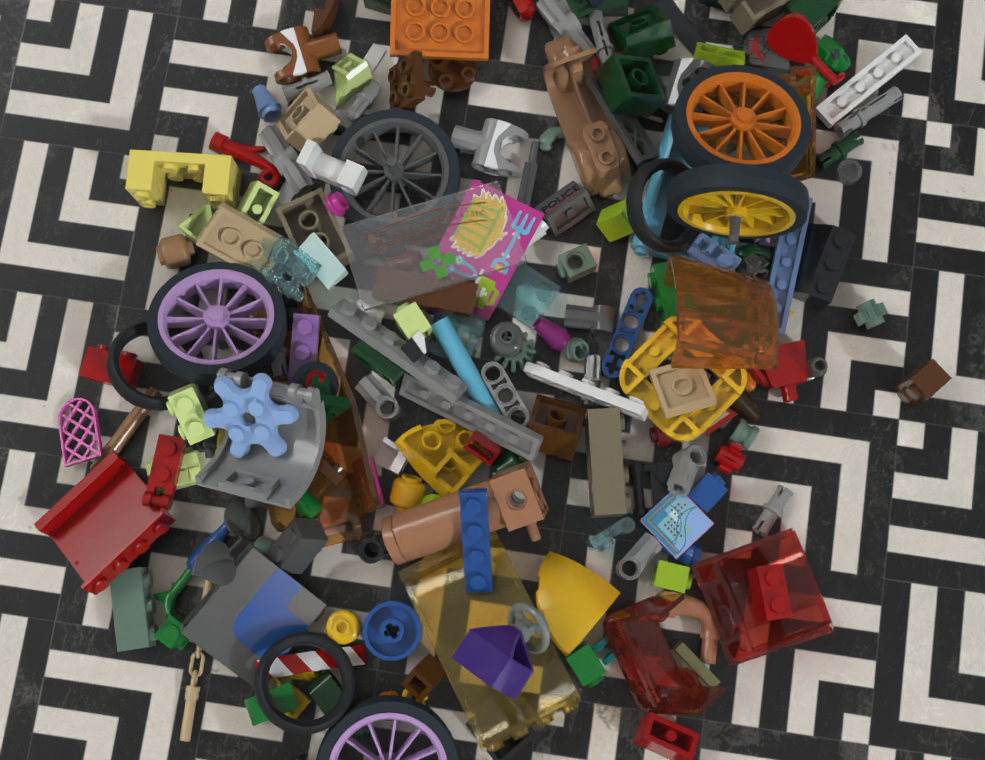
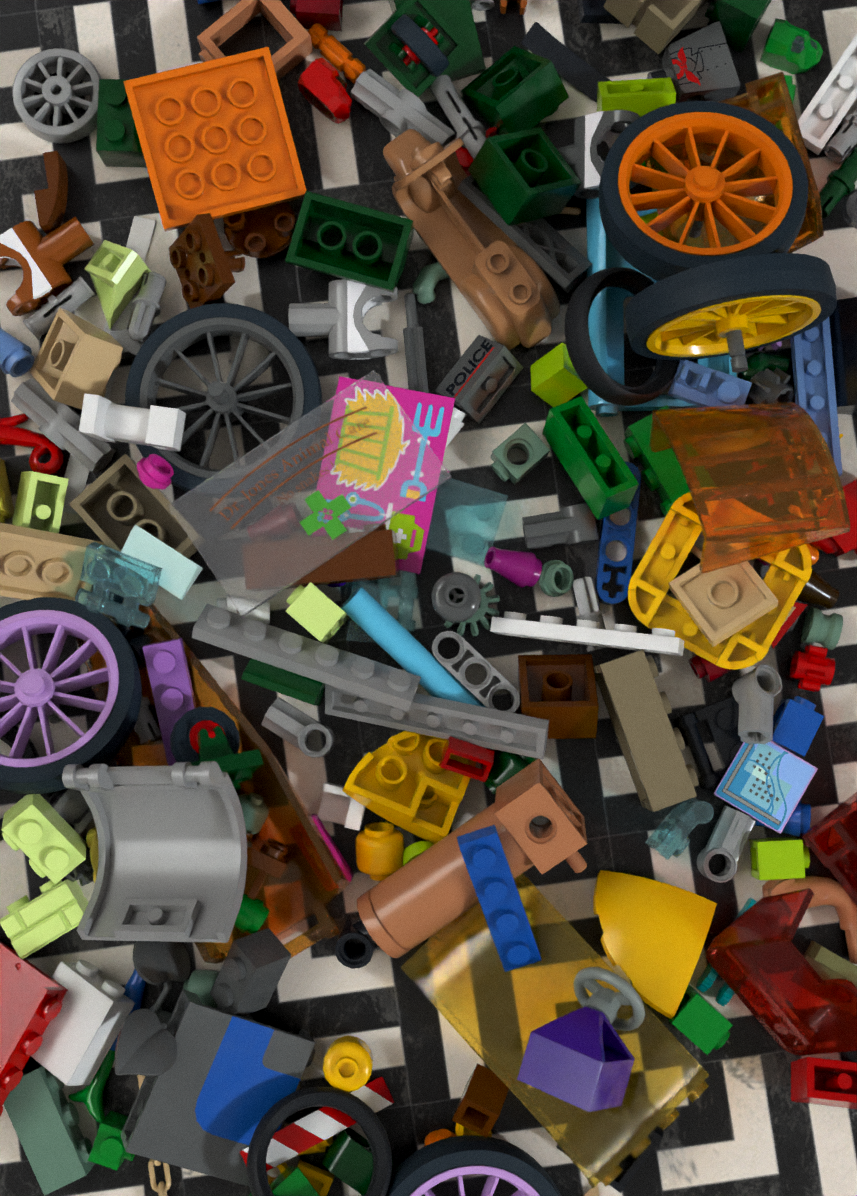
camera: 15 degrees left, 5 degrees up
(164, 471) = (30, 927): red plate -> none
(176, 549) = (85, 1026): none -> white brick
(257, 403) = (134, 803): light blue plate -> none
(332, 442) = (254, 812): none -> sand green piece
(377, 633) = (414, 1071): blue wheel -> none
(416, 347) = (332, 647): black sticker -> none
(507, 96) = (350, 241): none -> dark green slope
(621, 277) = (590, 458): none -> green brick
(796, 41) = (740, 41): red piece -> none

